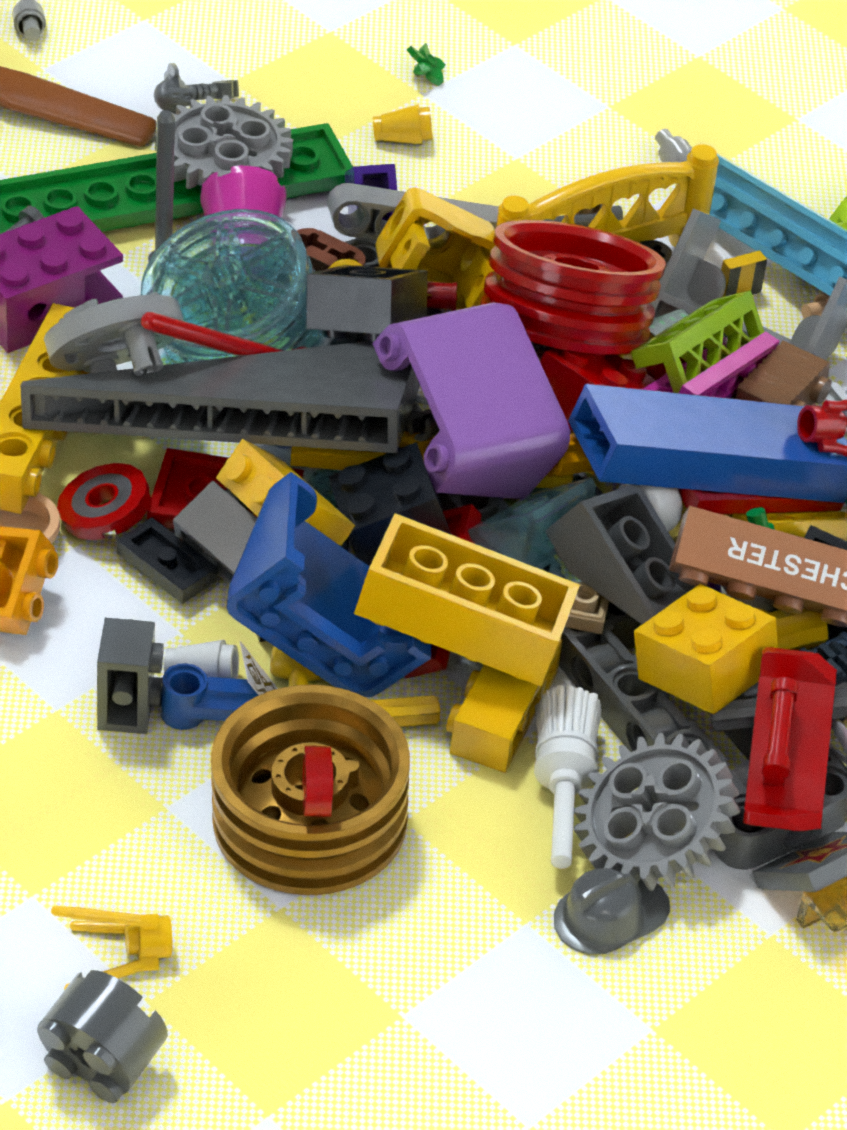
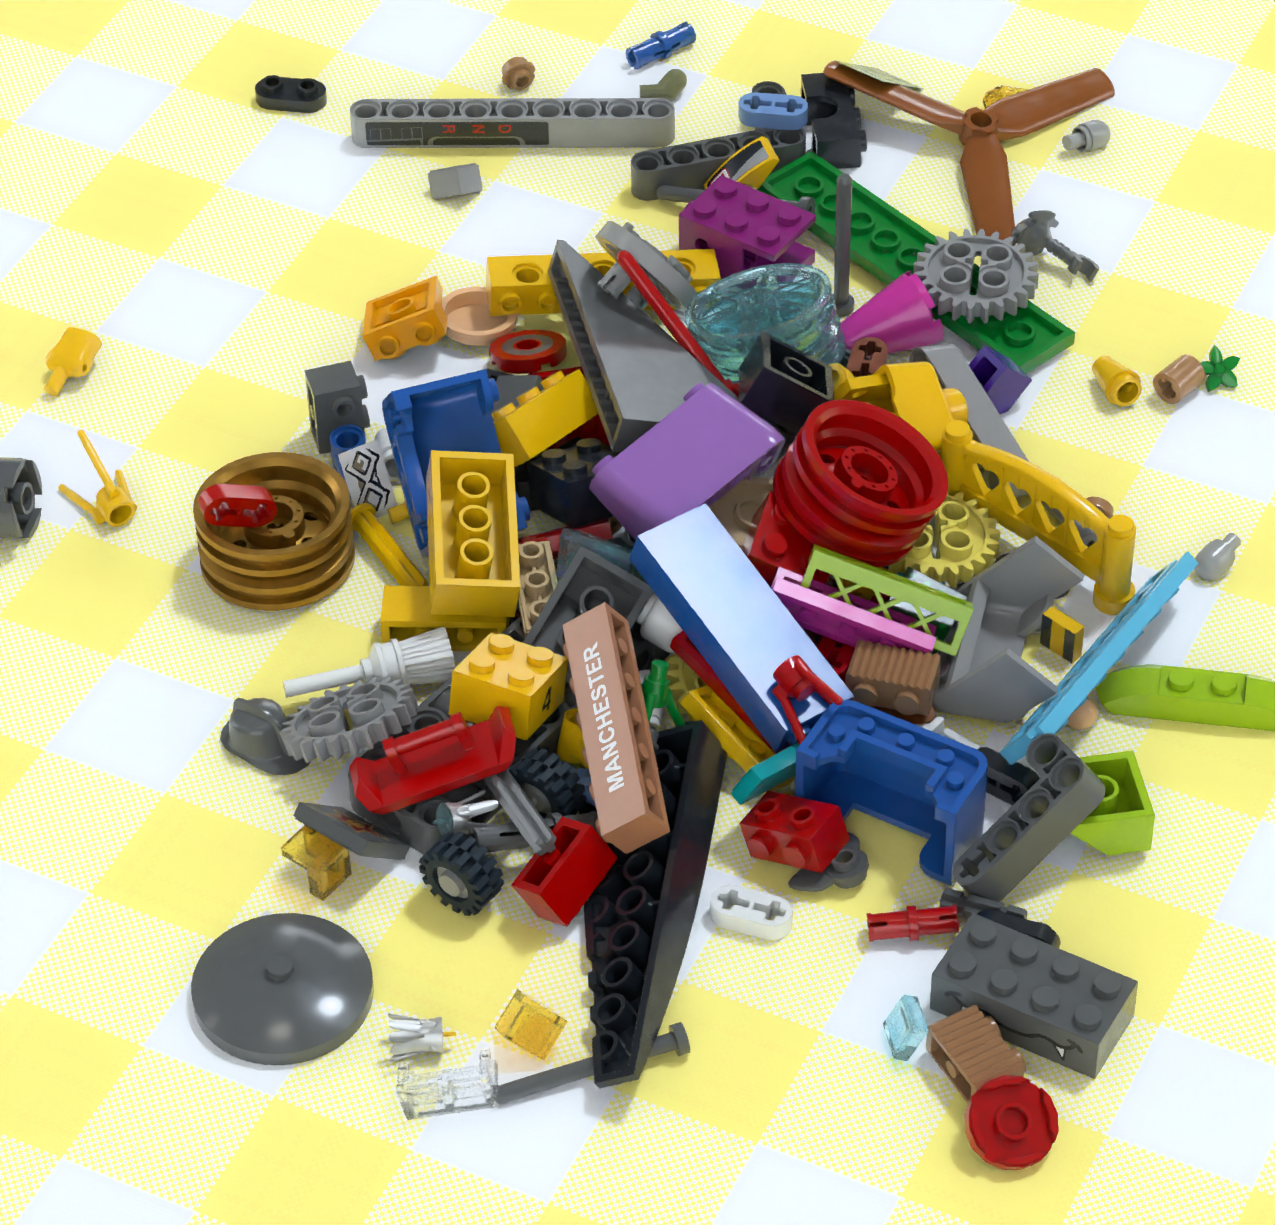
camera: 75 degrees right, 0 degrees up
(428, 87) = (1179, 379): none -> medium nougat piece

